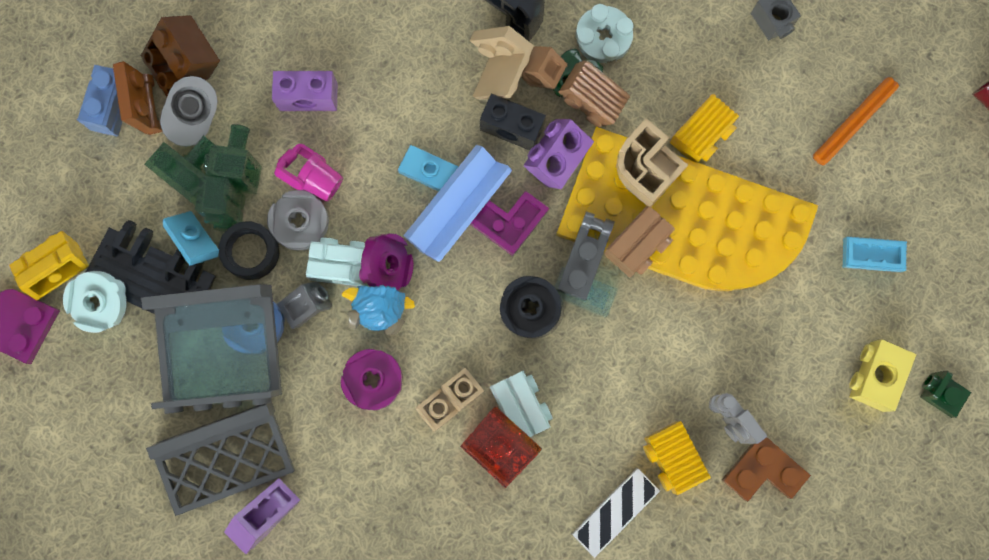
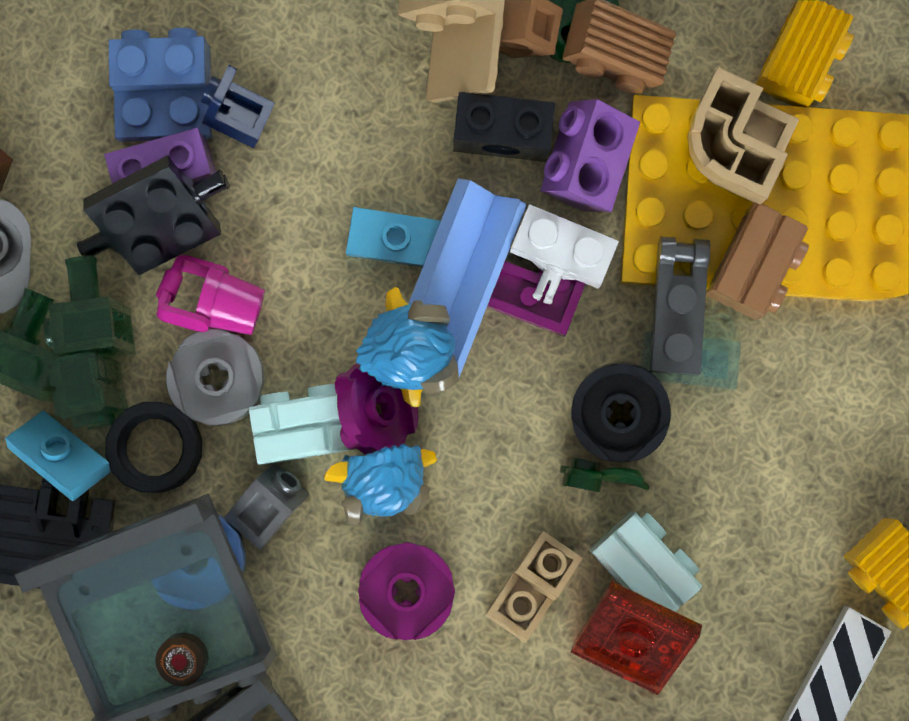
camera: 15 degrees left, 5 degrees up
(224, 379) = (181, 659): none -> dark brown tile
(290, 114) = (152, 215): none -> black plate
(320, 42) = (159, 84): none -> medium blue plate
(358, 68) = (235, 109): none -> dark blue bracket
(416, 232) = (410, 348): none -> dark azure hair
(502, 342) = (586, 475): none -> dark green plate
(525, 203) = (562, 251): none -> white plate

